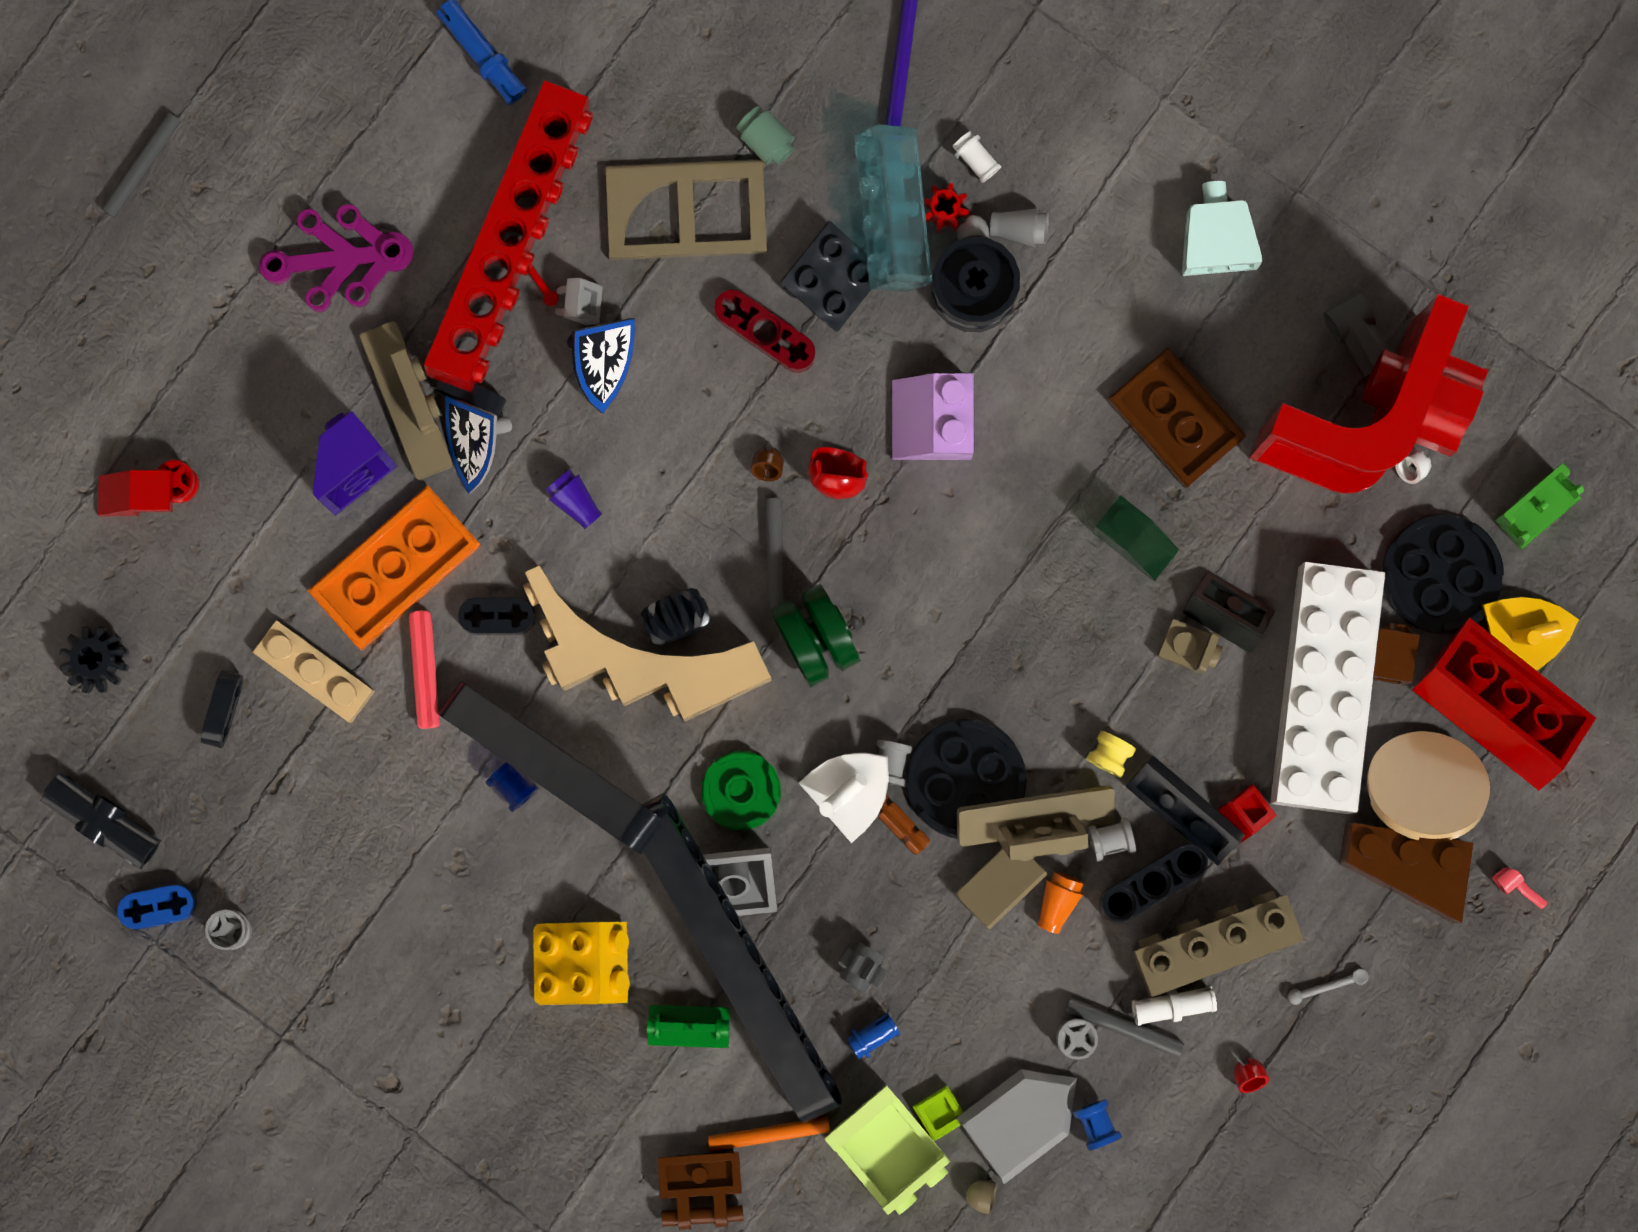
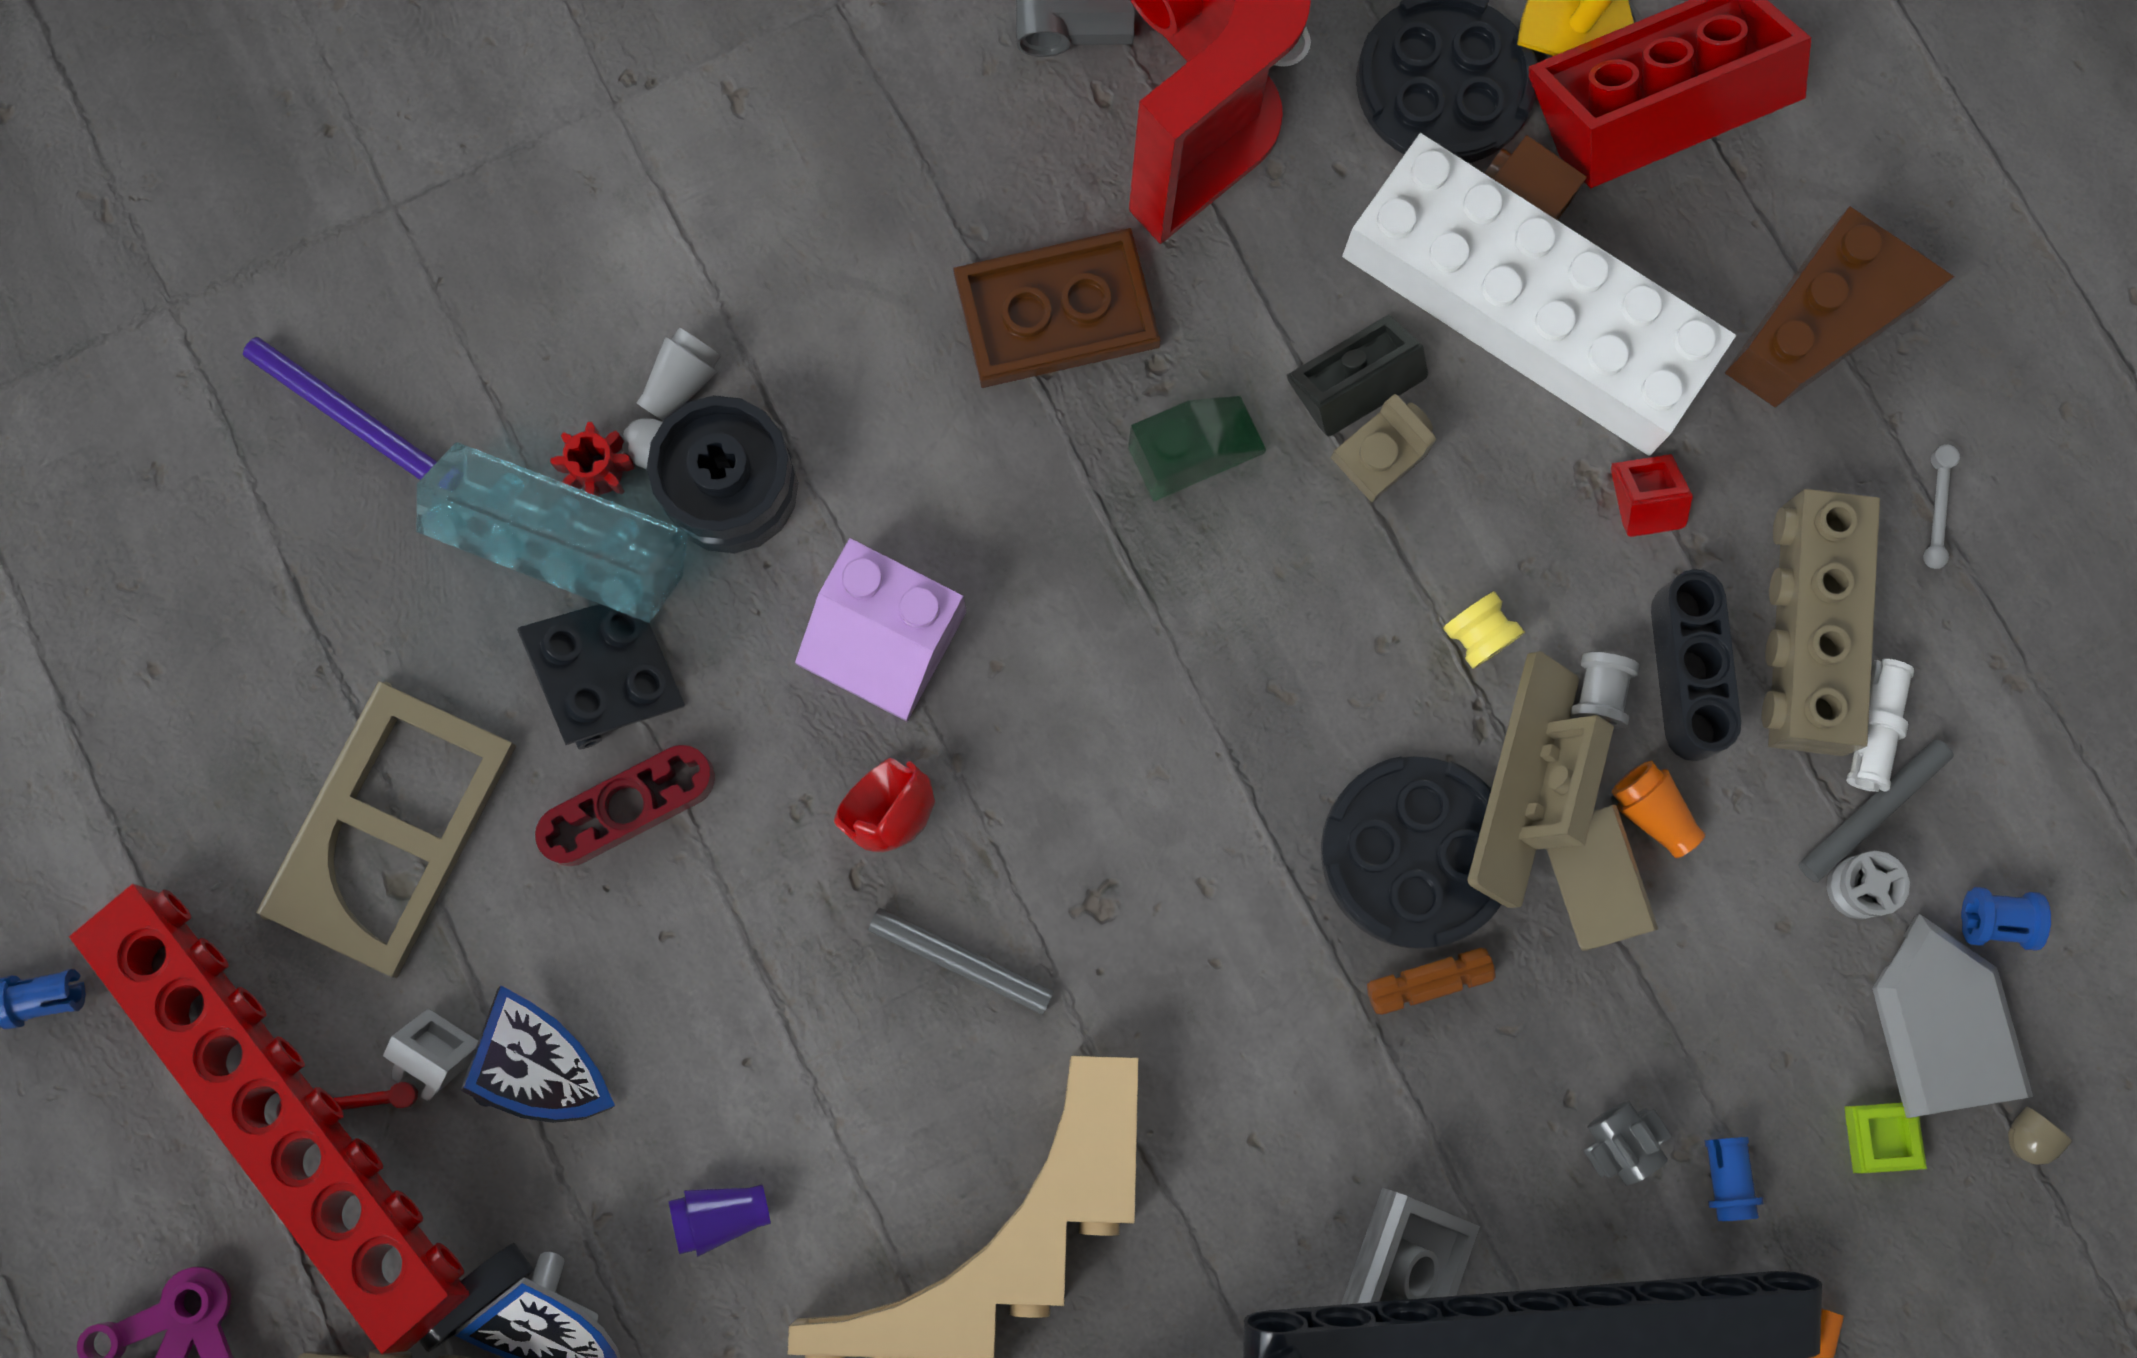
camera: 65 degrees left, 5 degrees down
(675, 616) = (974, 1155): black gear -> none
(741, 790) = (1276, 1188): green tile -> none
(766, 136) = (346, 657): sand green brick -> none
(774, 466) = (831, 908): reddish brown hinge -> none
(819, 633) = (1110, 961): dark green wheel -> none
(849, 790) = (1357, 1027): white shield -> none
(888, 1151) = (1914, 1243): yellowish green panel -> none
(896, 759) = (1345, 947): light grey bush -> none
(976, 156) = (545, 385): white pin -> none
(1185, 810) = (1611, 569): black plate -> none
(1219, 235) = (838, 121): light aqua torso -> none
(1250, 1076) = (2027, 671): red hinge -> none
(1428, 786) = (1739, 229): tan tile -> none
(1509, 879) = (1905, 199): coral hand -> none

